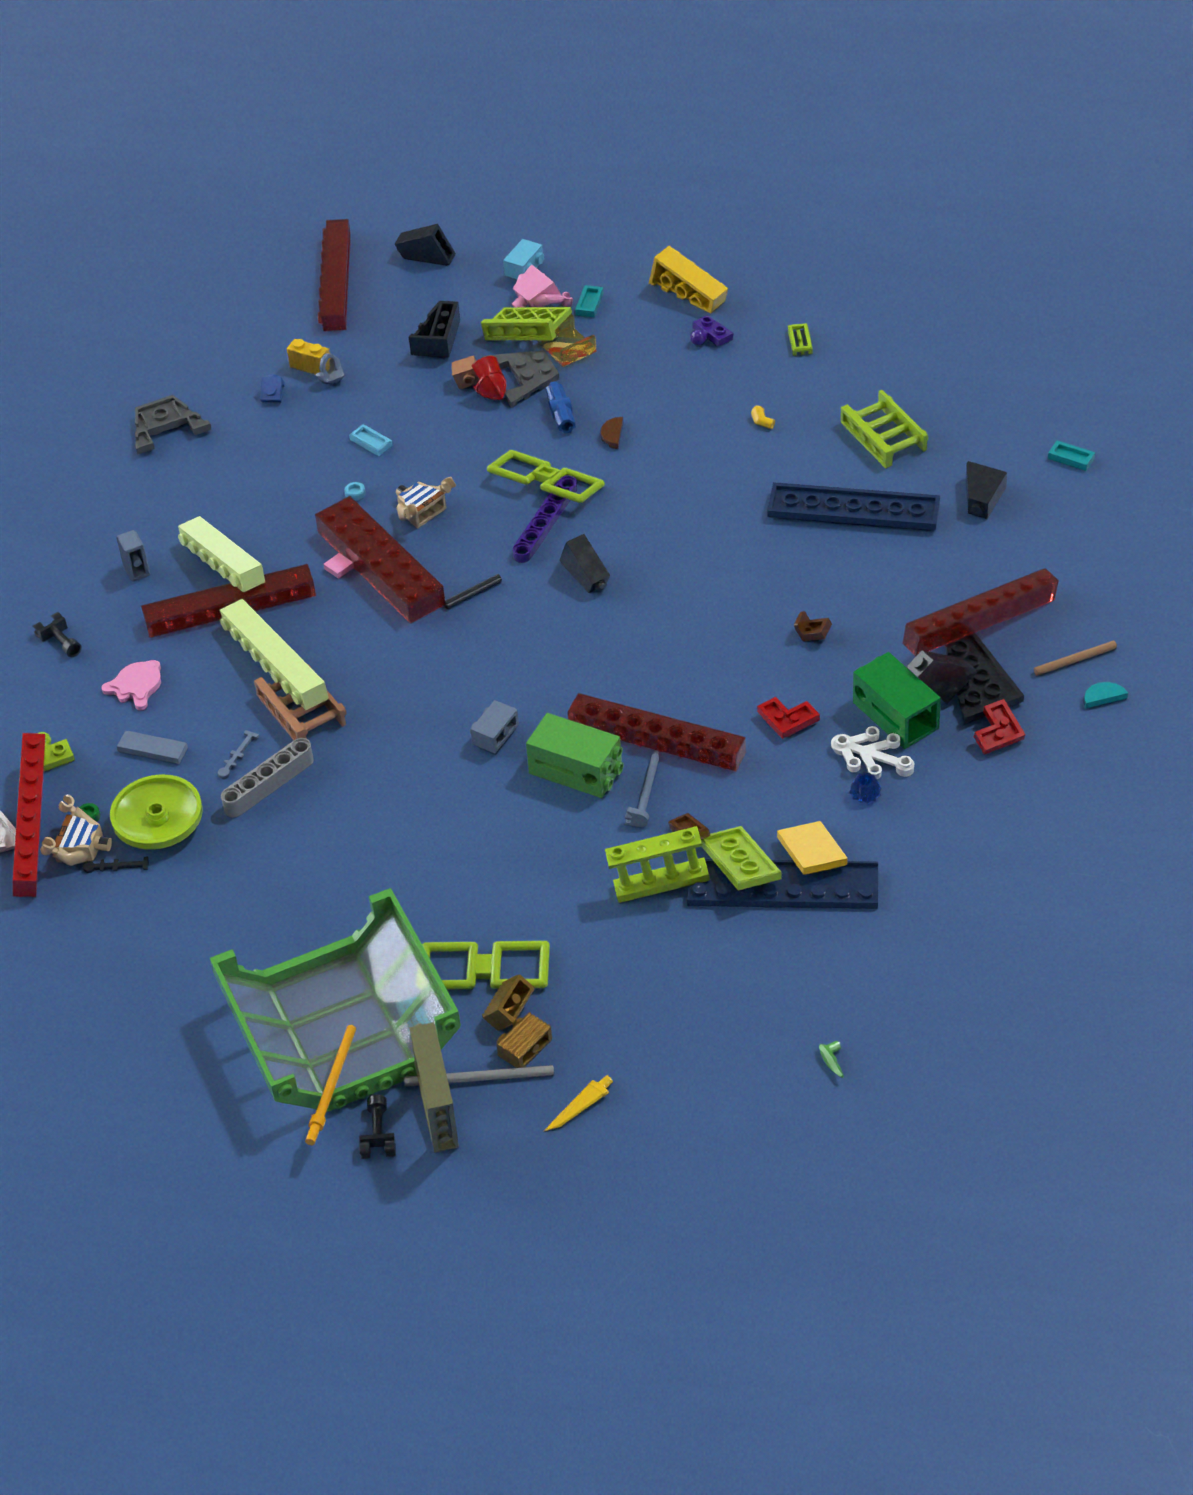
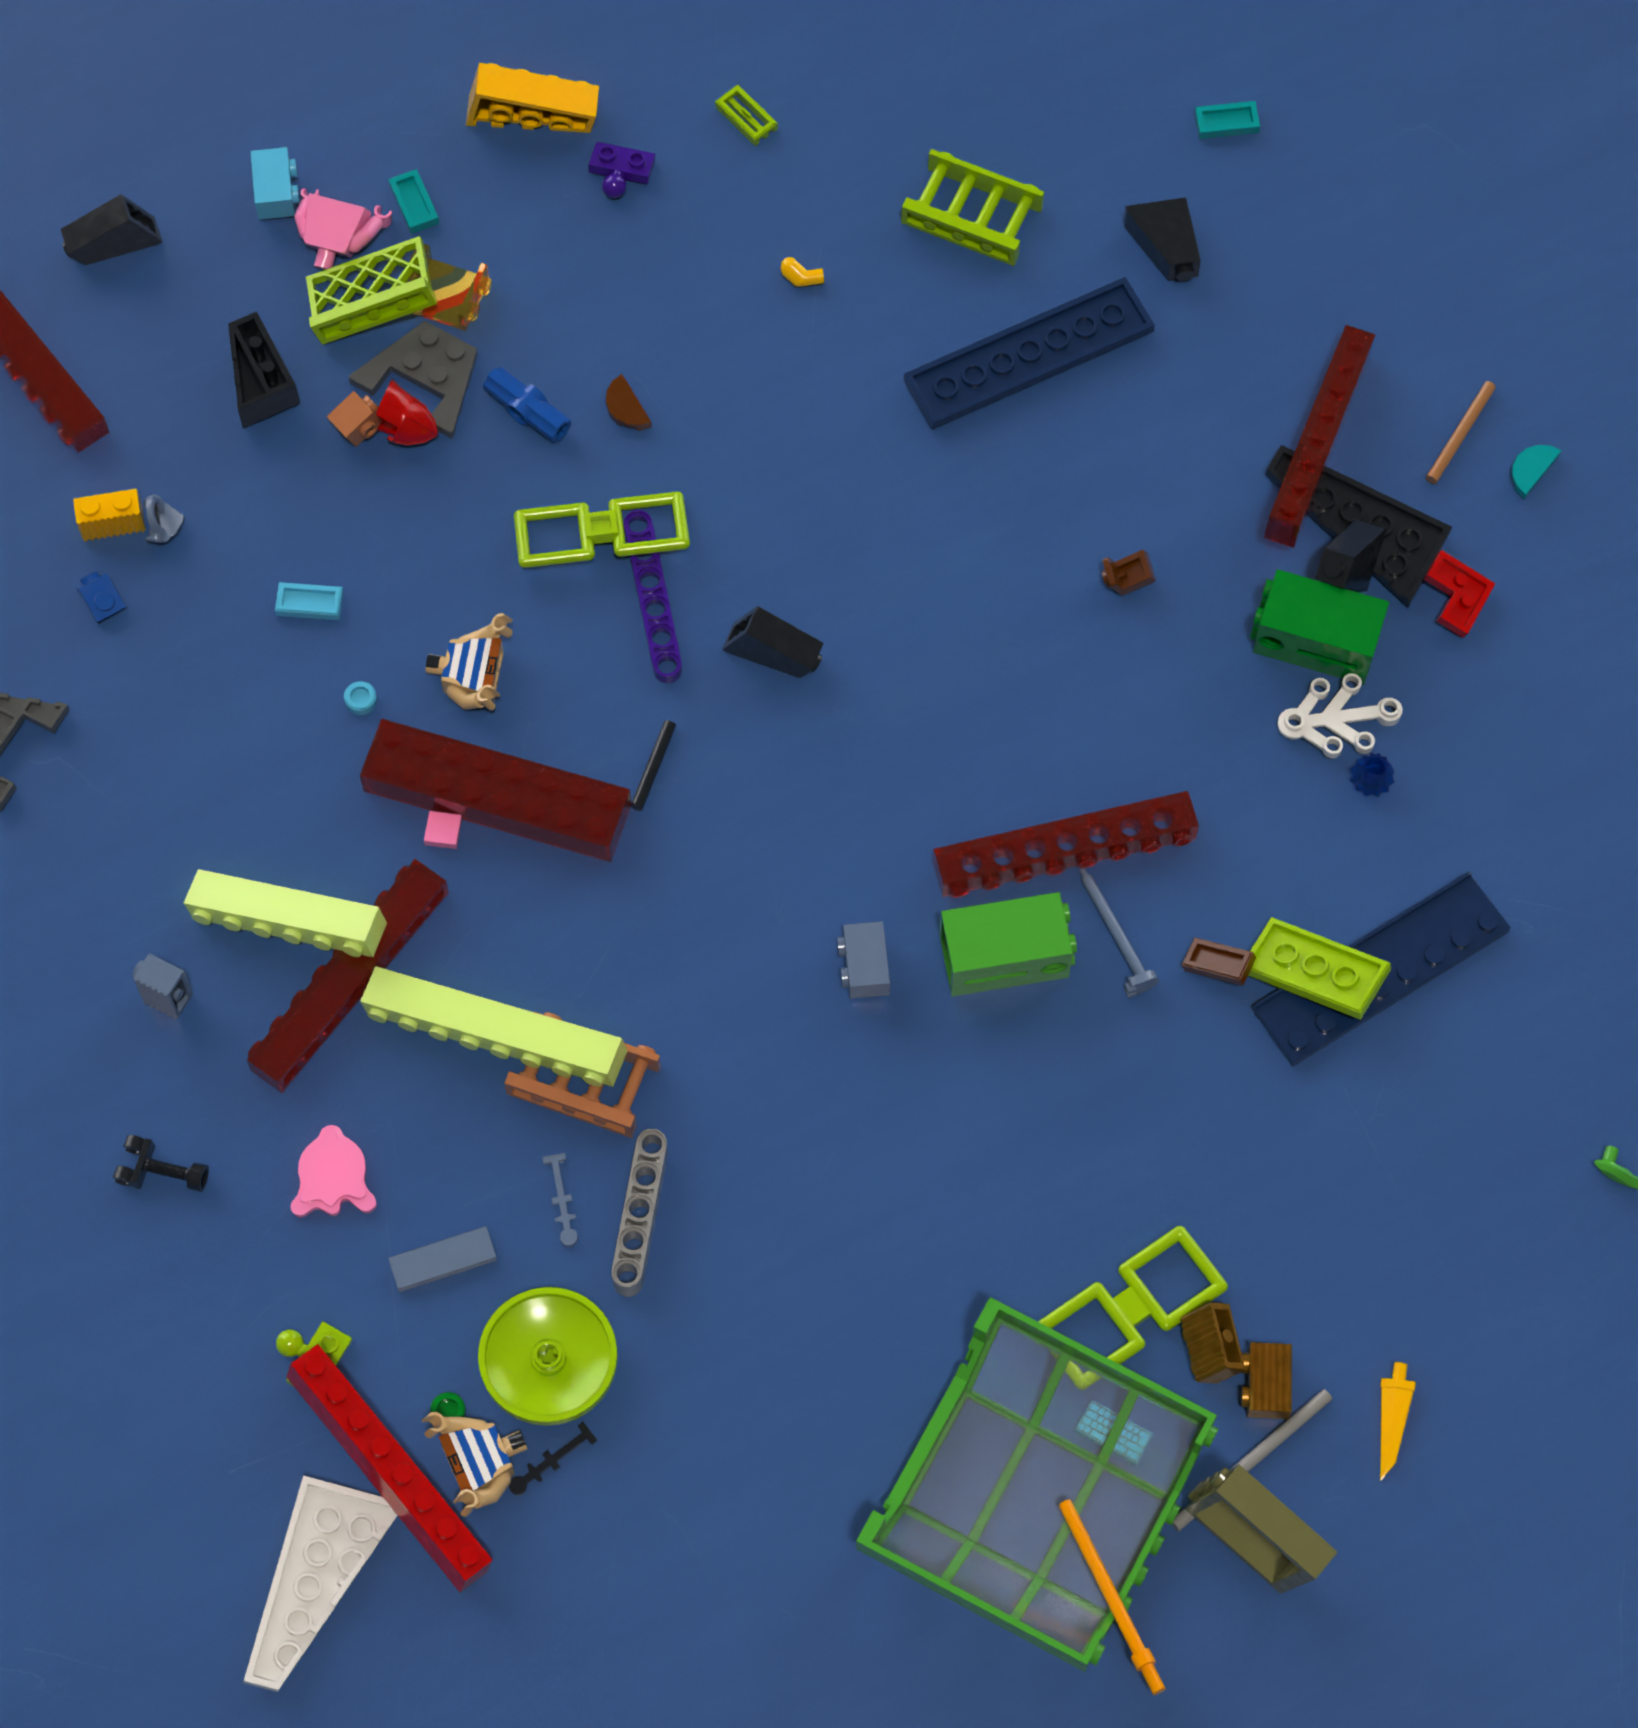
camera: 40 degrees left, 20 degrees up
(377, 1105) = (1173, 1582): black bar -> none
(662, 879) = (1242, 1044): lime fence -> none
(786, 721) = (1200, 732): red plate -> none
(812, 847) = (1382, 899): yellow tile -> none

